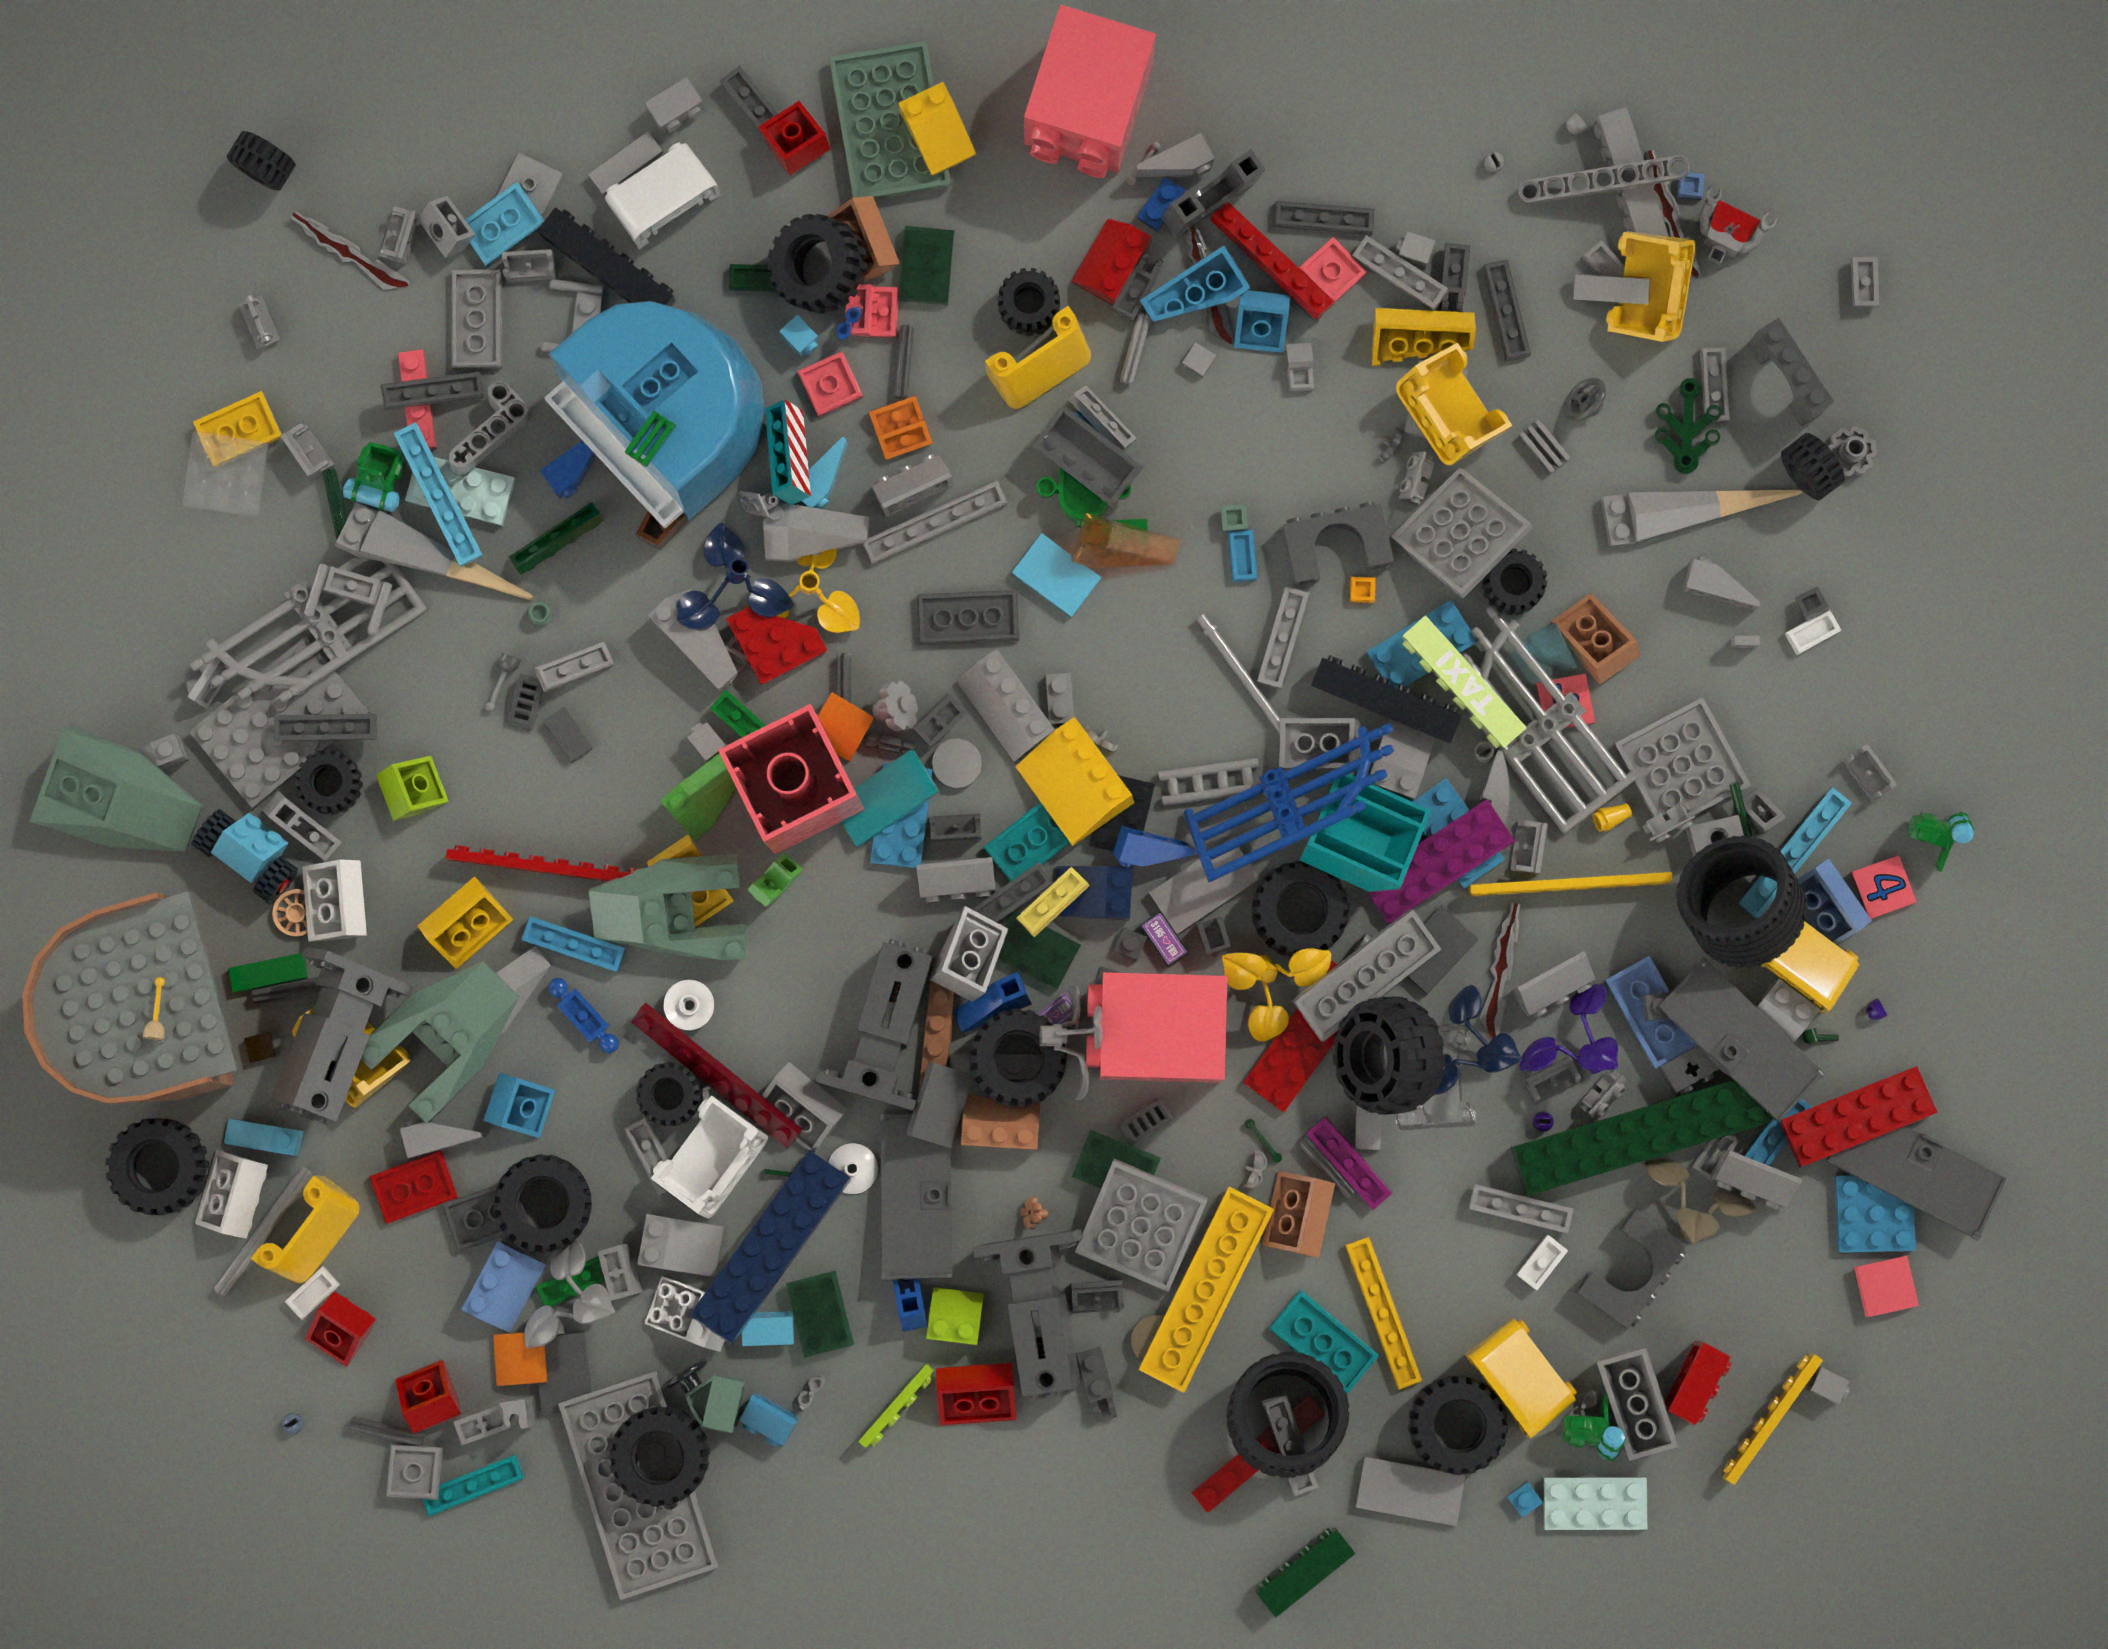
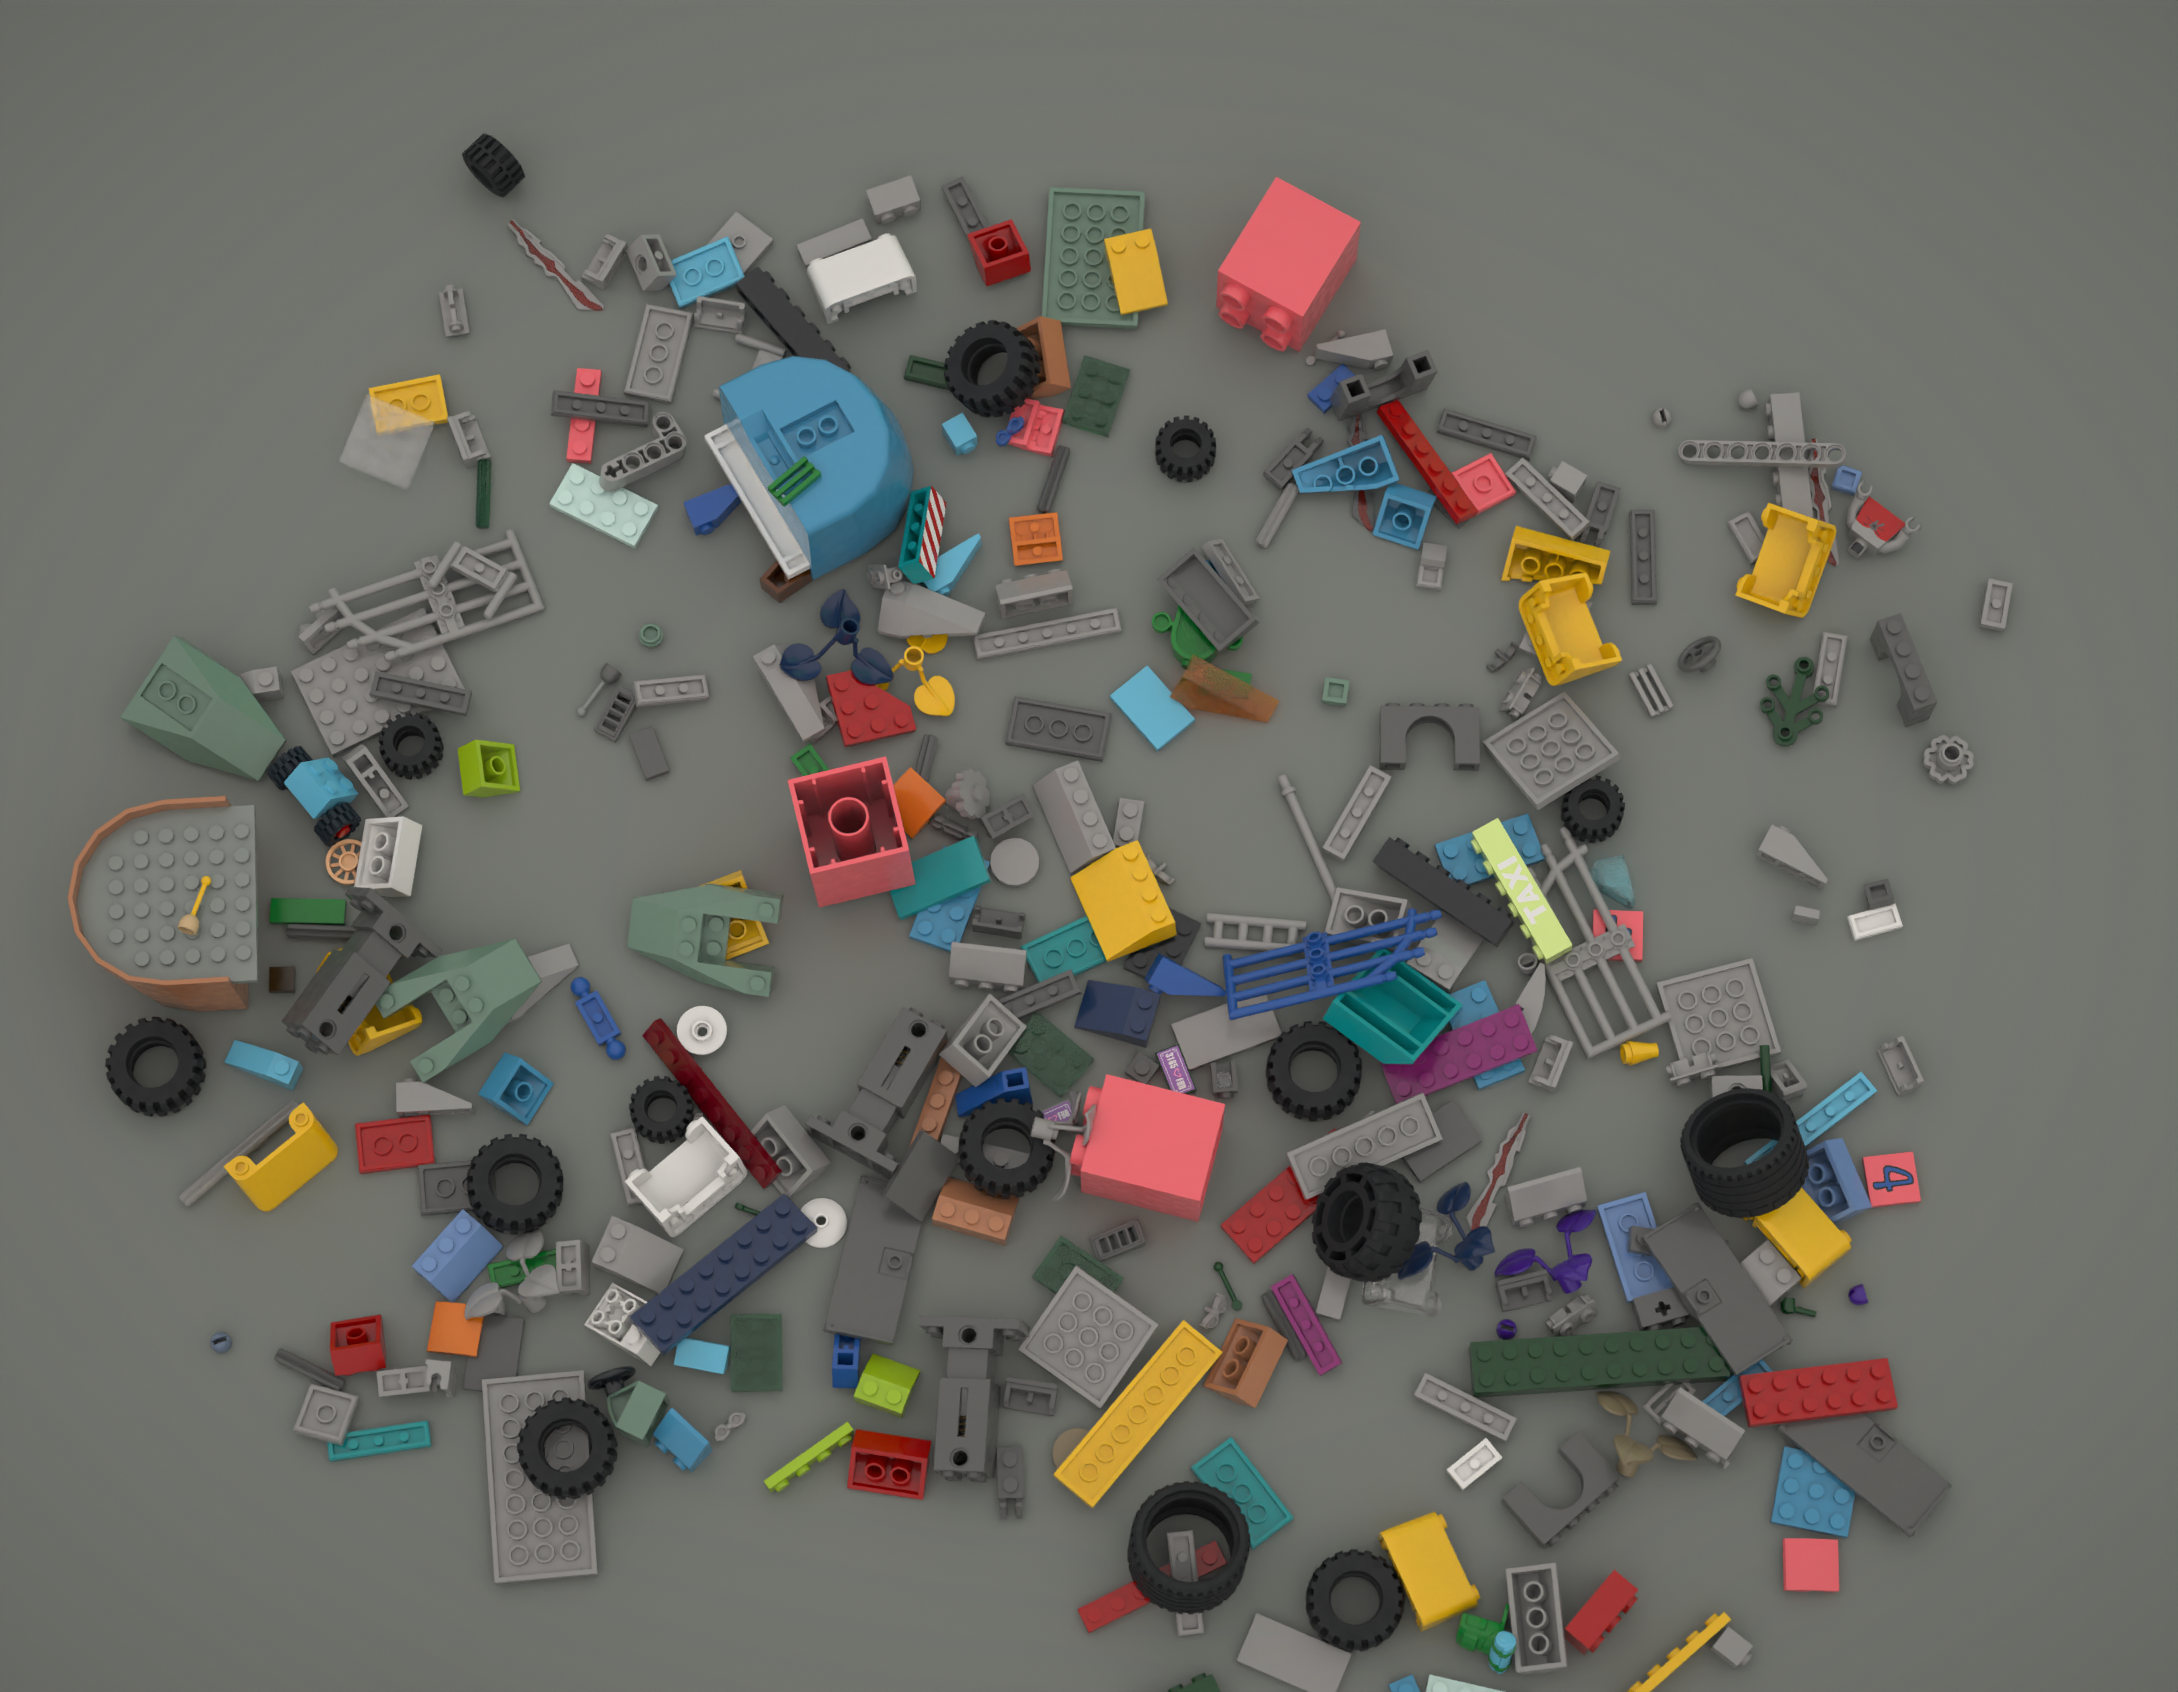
camera: 15 degrees right, 10 degrees down
(231, 1194) = (219, 1110): white slope -> none
(312, 1293) = (272, 1222): white tile -> none
(340, 1328) = (290, 1260): red slope -> none
(376, 475) = (525, 479): green piece -> none
(388, 540) = (525, 536): light grey plate -> none
(438, 495) = (582, 503): medium azure plate -> none
(465, 922) = (507, 905): yellow slope -> none
(535, 864) = (587, 865): red plate -> none
(556, 538) = (689, 567): dark green plate -> none
(573, 944) = (605, 949): dark azure plate -> none
(701, 797) = (762, 838): bright green wedge -> none
(705, 740) = (778, 788): light grey brick -> none
(775, 880) = (814, 931): bright green brick -> none
(830, 384) = (978, 485): coral tile -> none
(1032, 1213) = (986, 1303): nougat plant -> none
(1044, 368) = (1183, 511): yellow windscreen -> none
(1052, 902) = (1075, 1009): light yellow tile -> none
(1111, 260) = (1274, 428): red slope -> none
(1199, 360) = (1336, 538): light grey tile -> none
(1242, 555) = (1336, 729): dark azure tile -> none
(1245, 968) = (1246, 1106): yellow plant -> none
(1362, 590) = (1444, 786): light orange tile -> none
(1383, 1313) = (1307, 1478): yellow tile -> none
(1570, 884) = (1583, 1107): yellow tile -> none
(1588, 1401) = (1490, 1611): light grey piece -> none
(1597, 638) = (1661, 881): nougat slope -> none
(1611, 288) = (1748, 557): light grey tile -> none
(1646, 515) = (1740, 776): light grey plate -> none
(1812, 466) = (1906, 762): black tyre -> none
(1941, 832) = (1957, 1136): green piece -> none

